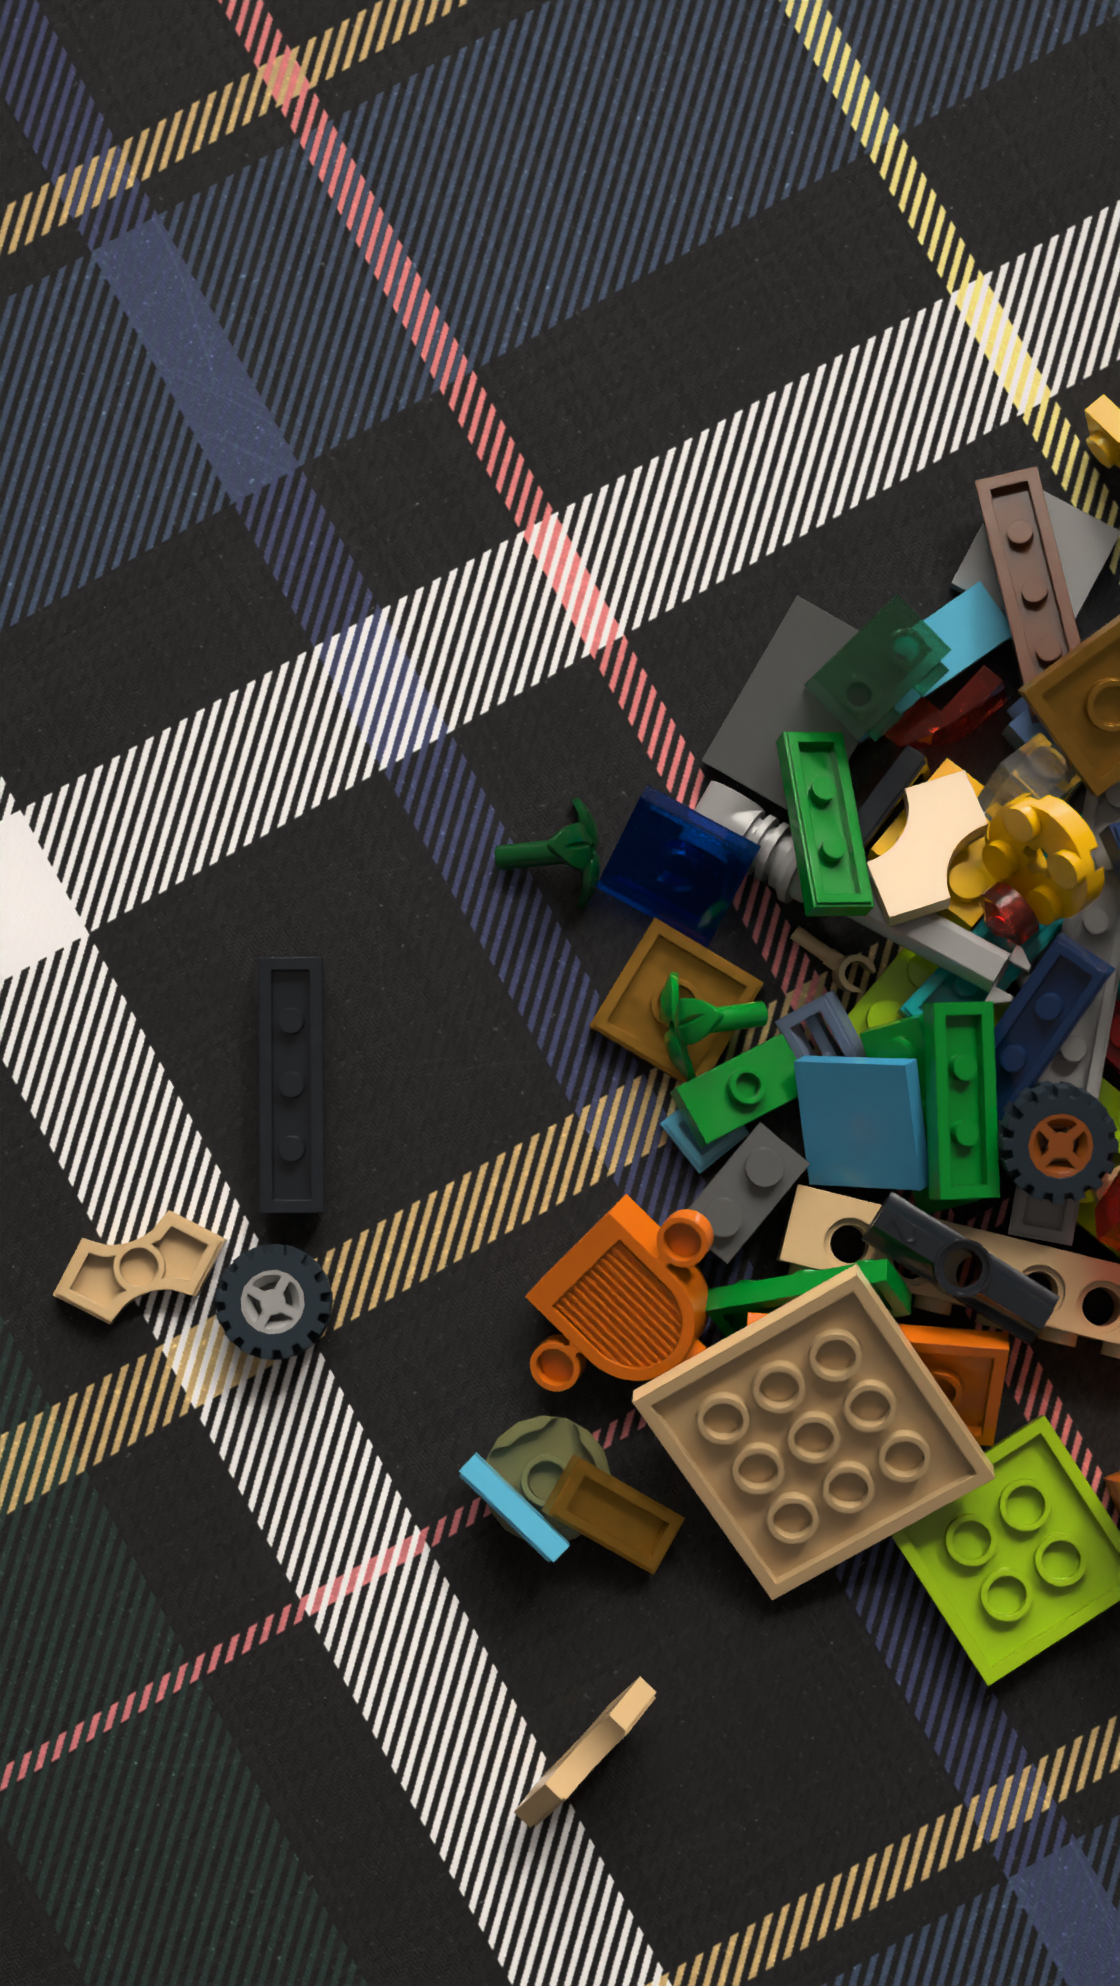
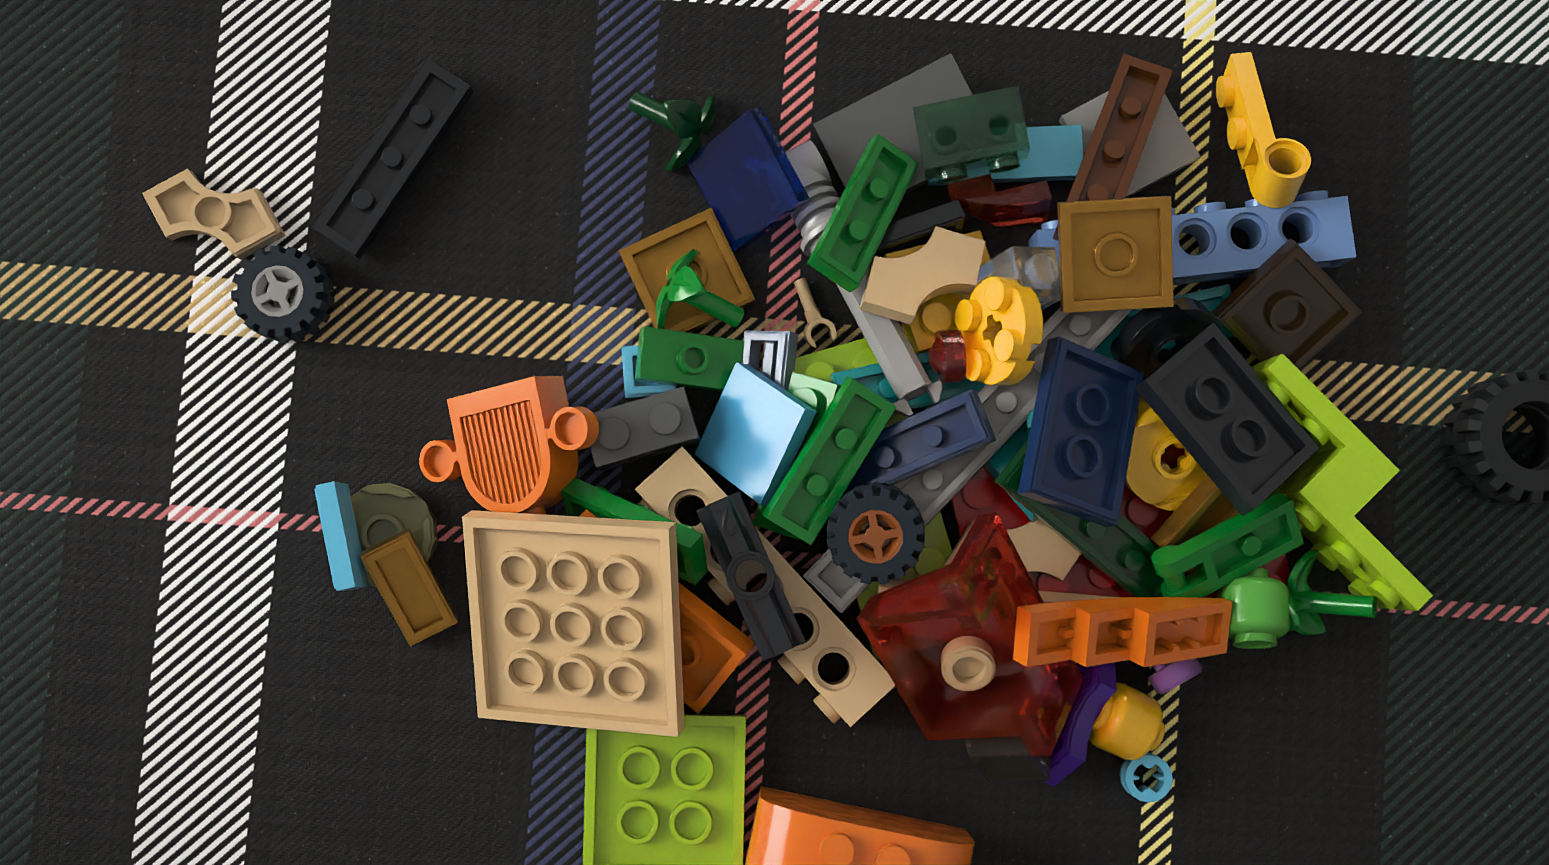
camera: 30 degrees right, 0 degrees up
(586, 1753) = (278, 736): tan tile -> none

